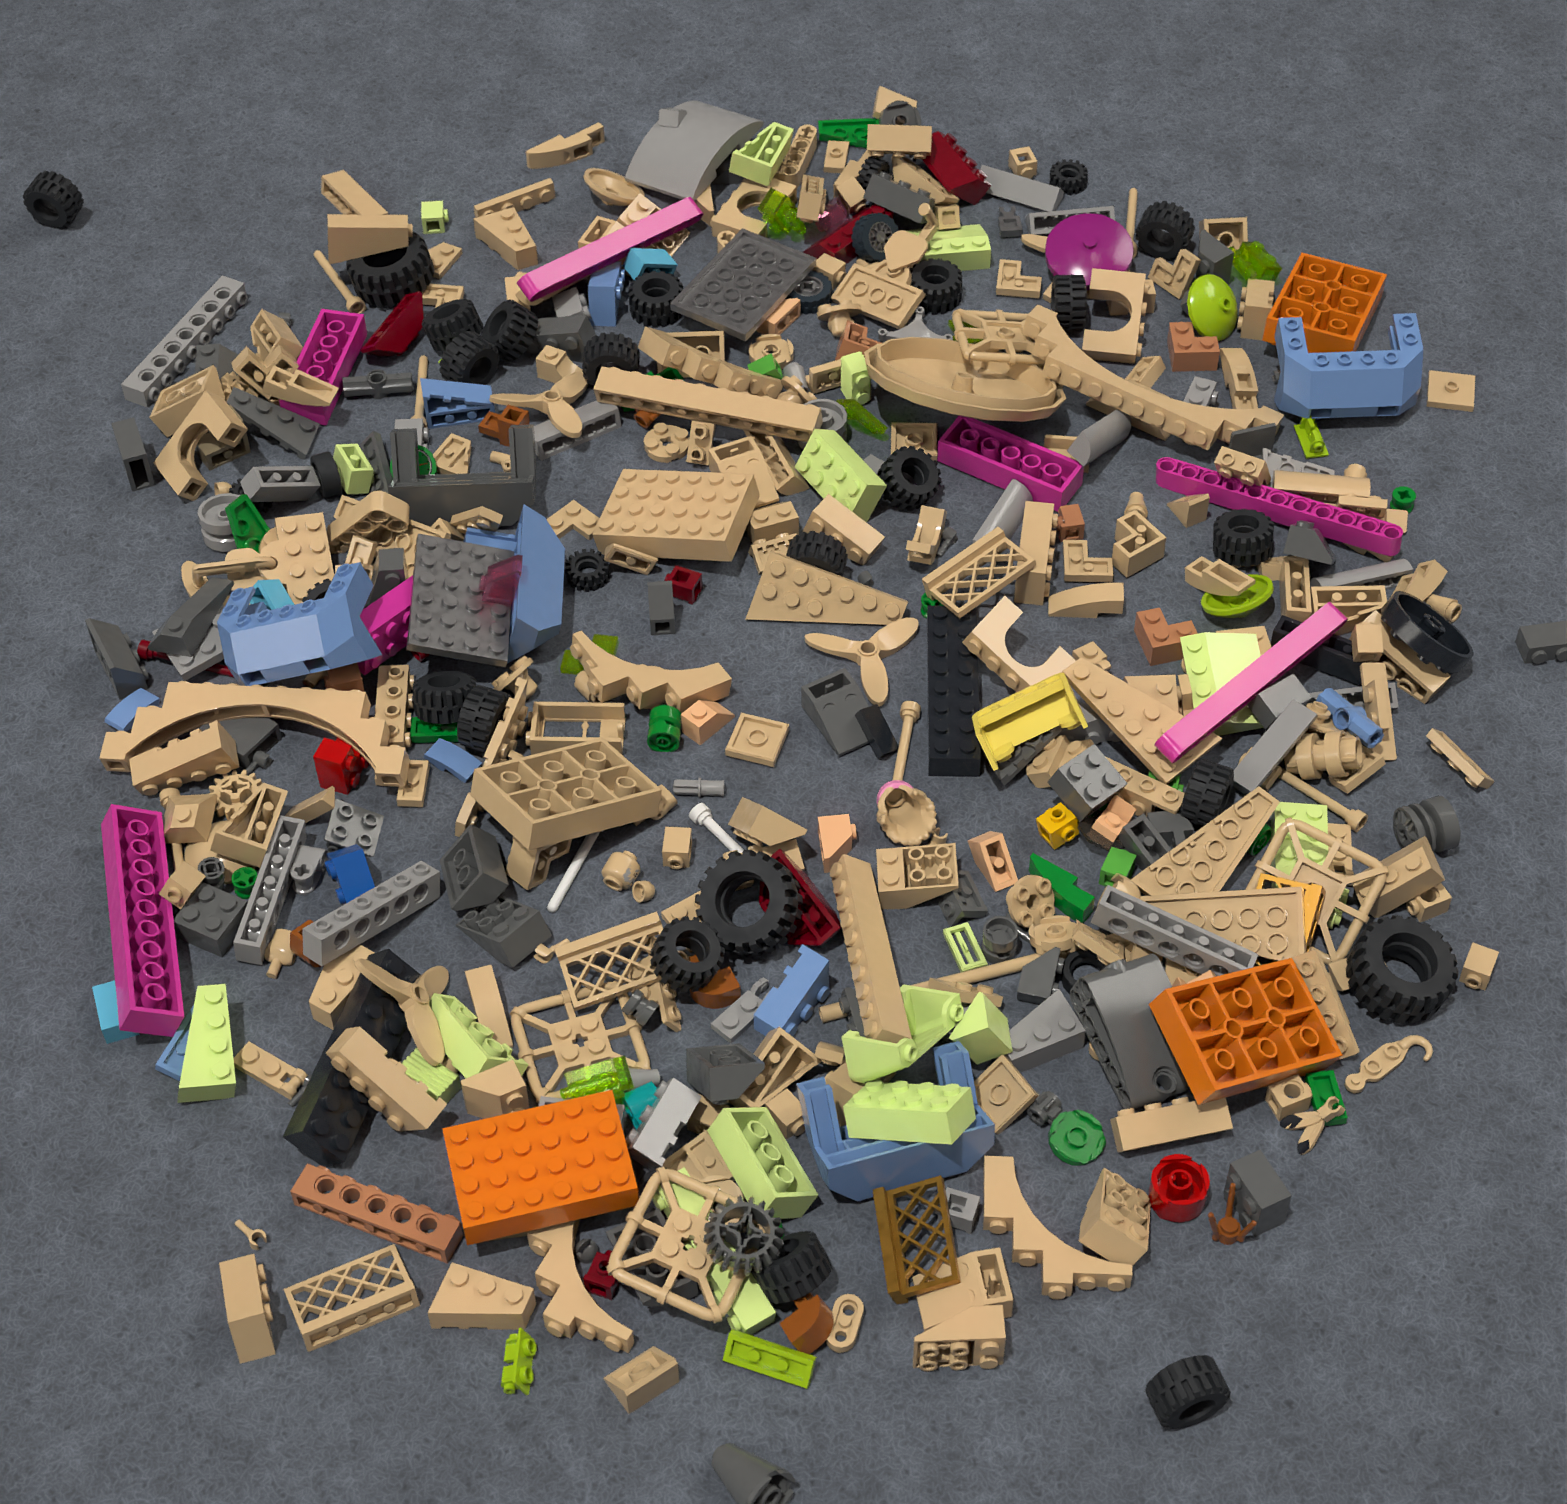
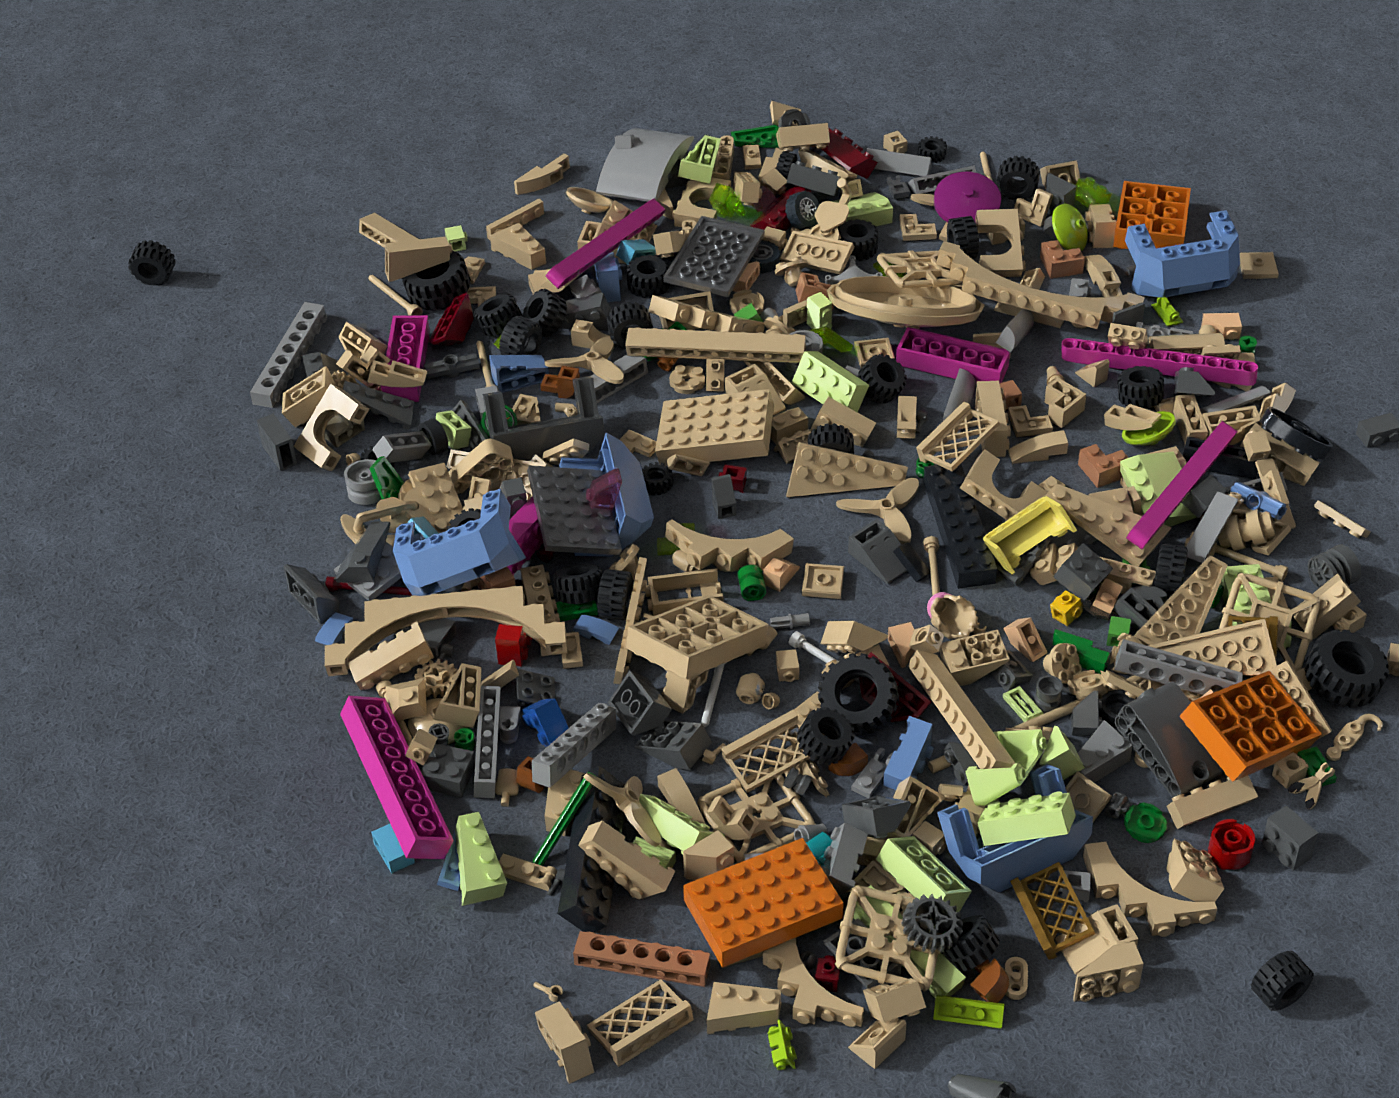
camera: 10 degrees left, 5 degrees down
(325, 1015) = (562, 822): none -> green axle
(540, 1050) = (735, 824): none -> tan brick
(597, 1078) = (784, 833): clear neon green brick -> none
(671, 1330) = (893, 1001): none -> tan brick
(690, 260) = (670, 242): none -> tan wedge
(860, 842) = (926, 639): none -> tan brick
(1228, 1228) = (1274, 867): dark orange plant -> none
(1381, 466) = (1225, 323): none -> light nougat slope
(1446, 606) = (1300, 414): tan cone -> none

